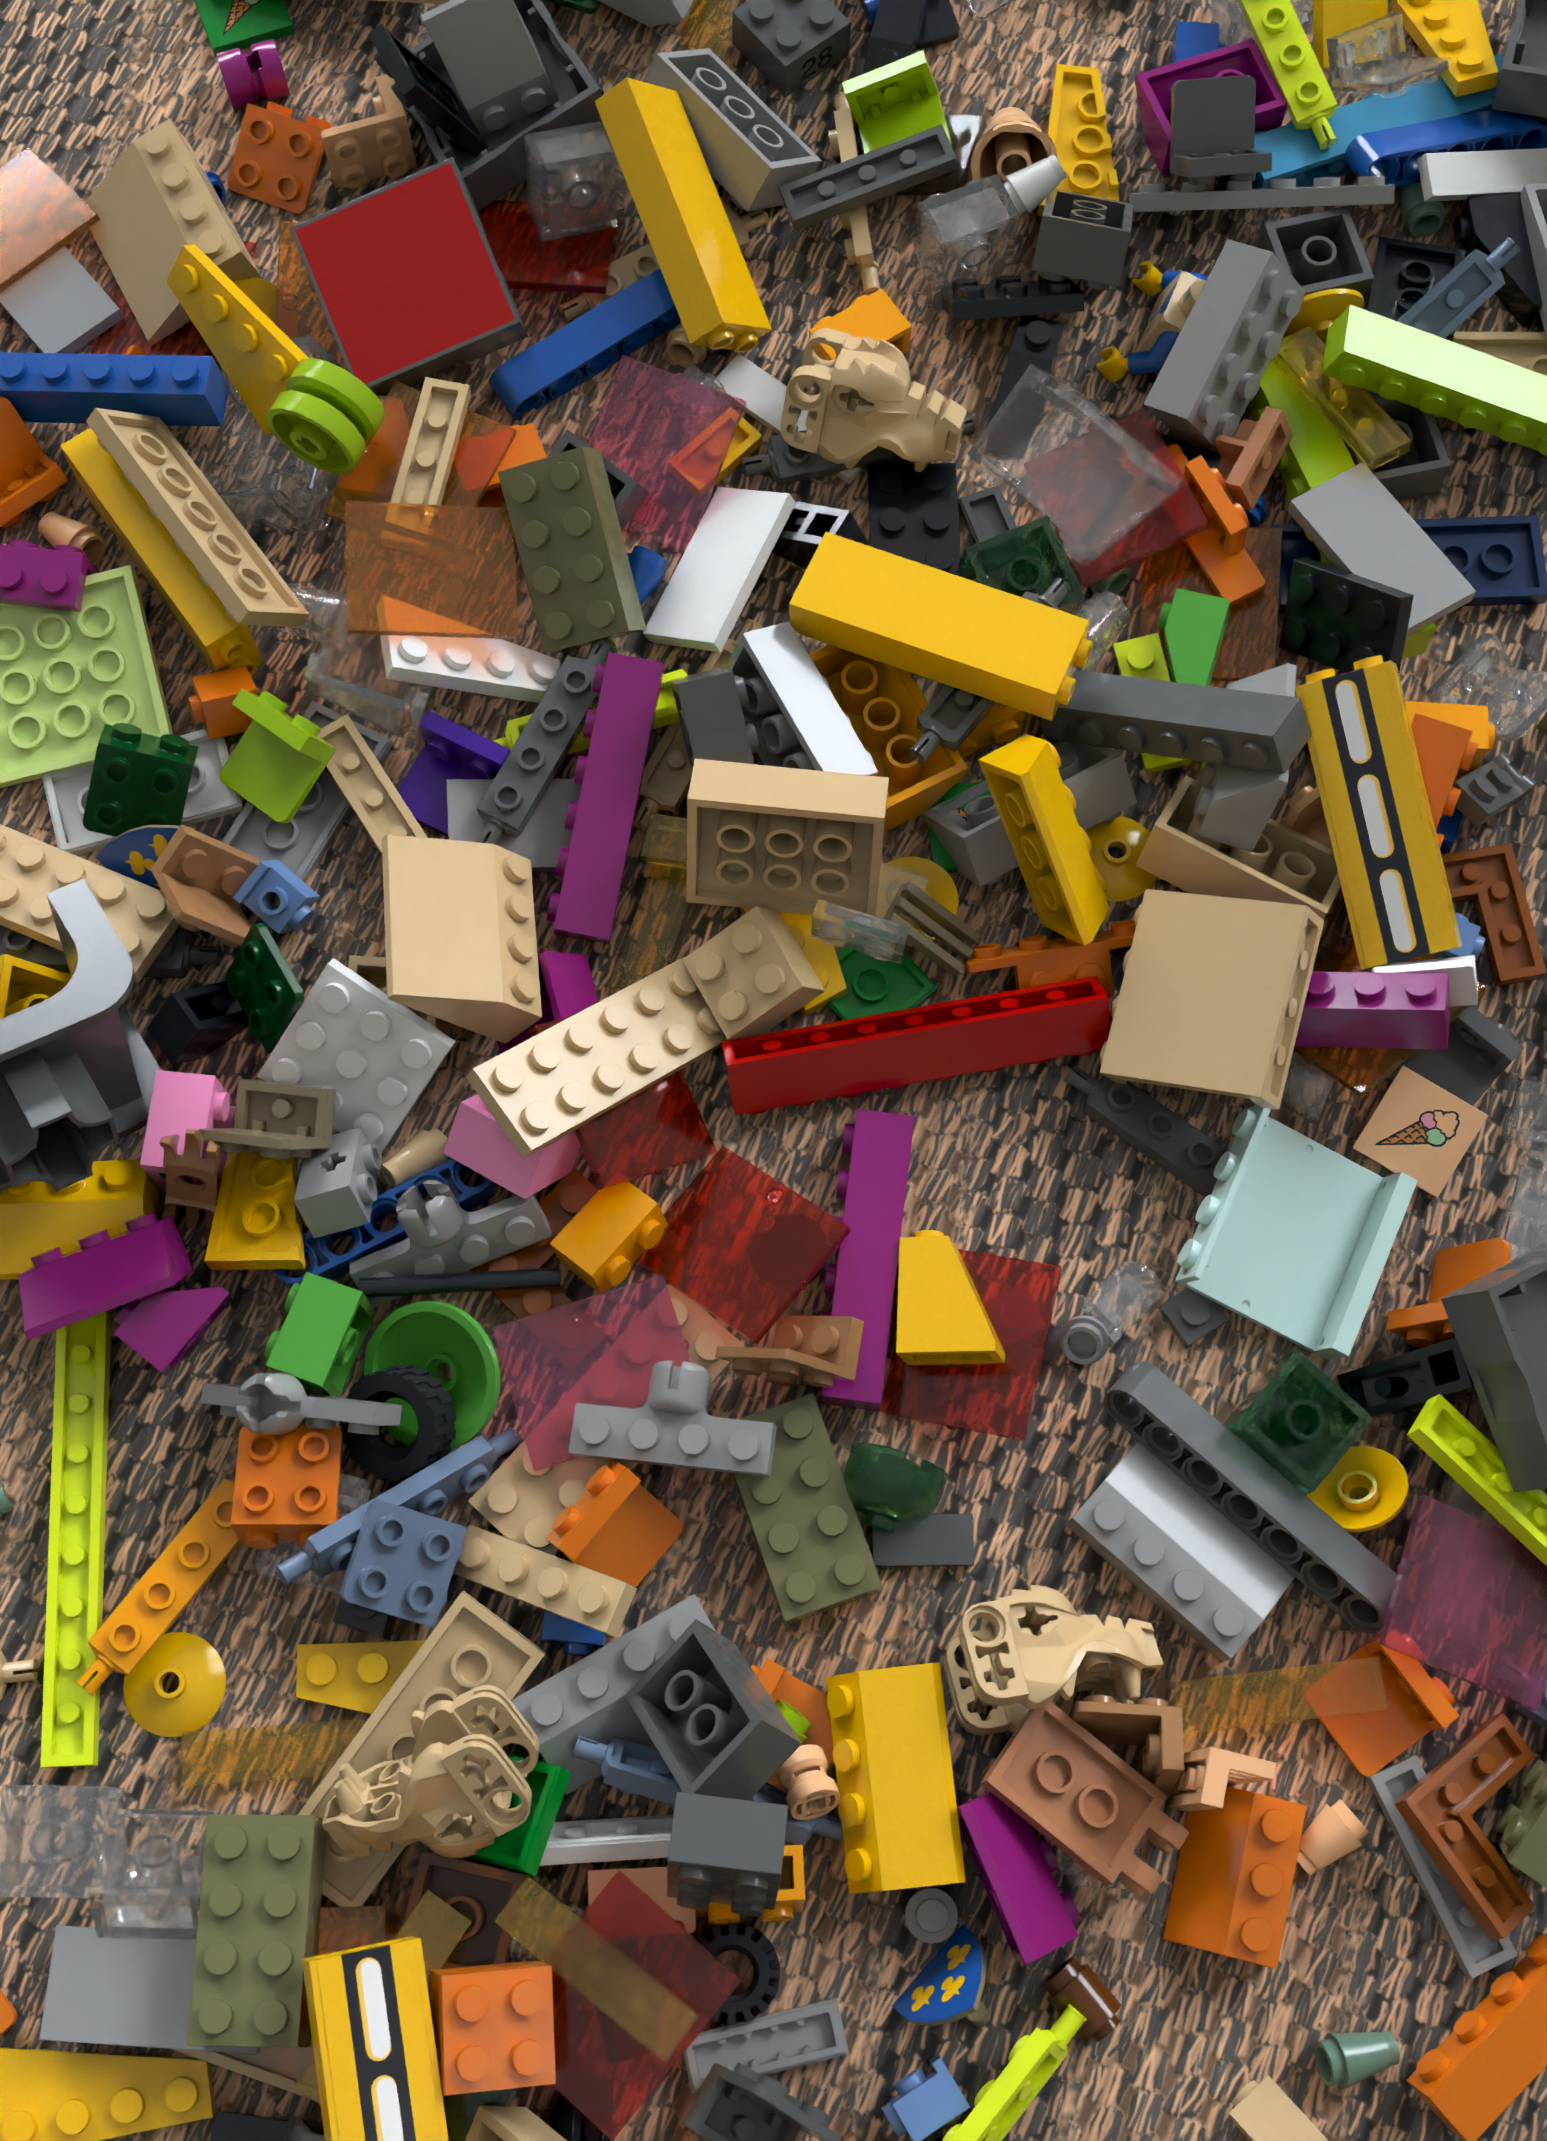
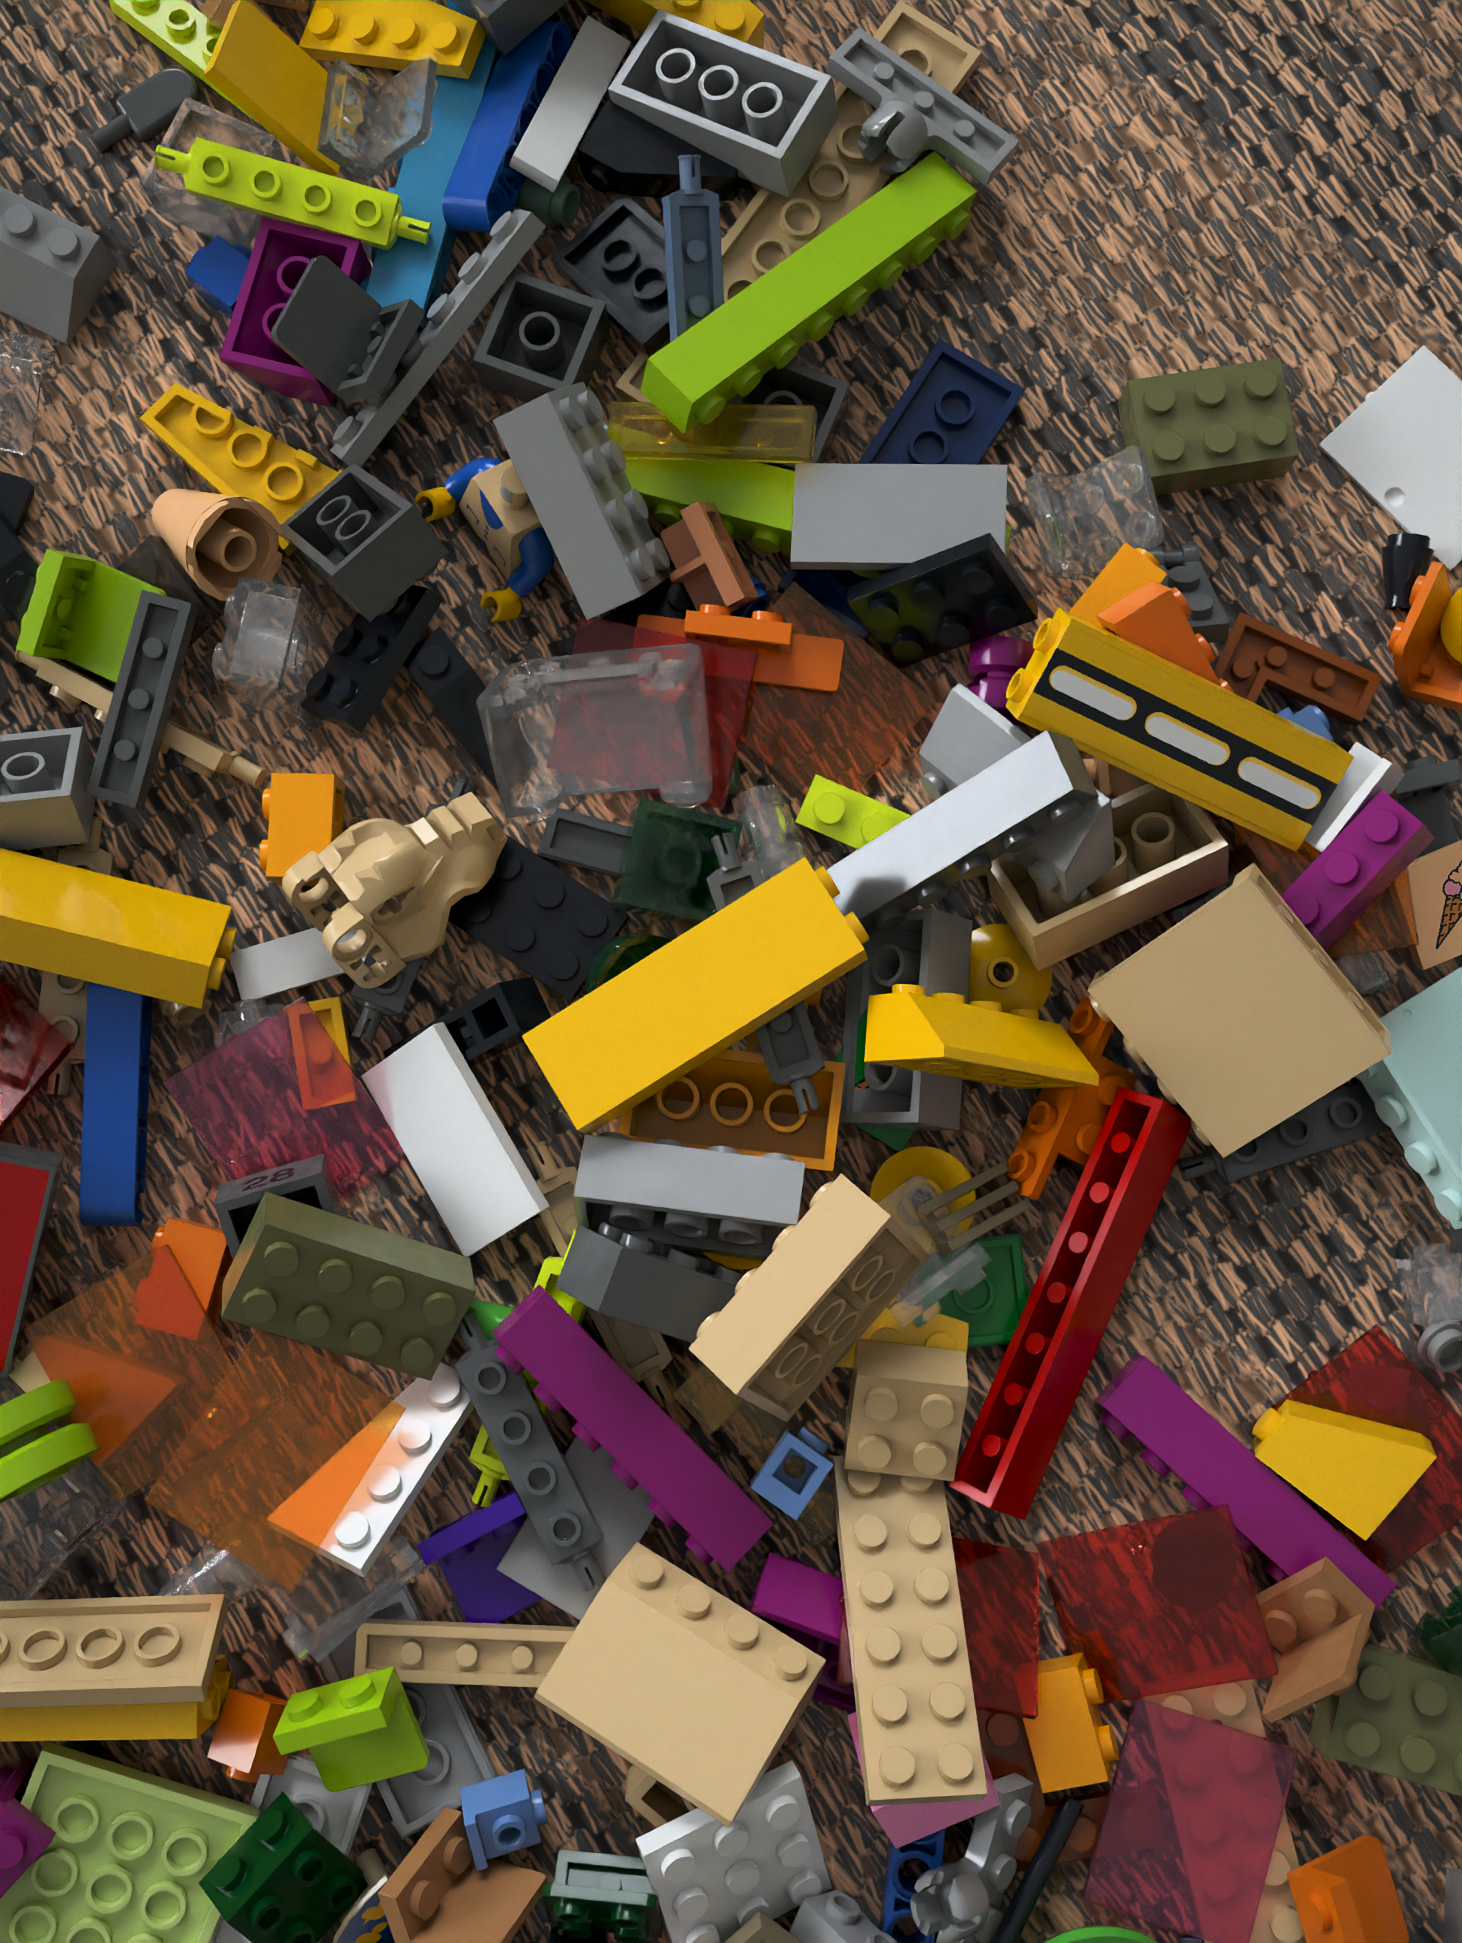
camera: 50 degrees left, 10 degrees up
(415, 1157) = (865, 1857): tan cone -> none
(432, 442) = (132, 1354): tan plate -> none
(646, 570) = (404, 1215): blue cone -> none
(647, 915) = (789, 1491): none -> medium blue brick
(674, 1428) = (1307, 1804): light grey plate -> none
(1034, 183) = (271, 547): white cone -> none
(1193, 635) = (856, 754): bright green slope -> none
(1322, 309) = (605, 374): yellow dish -> none

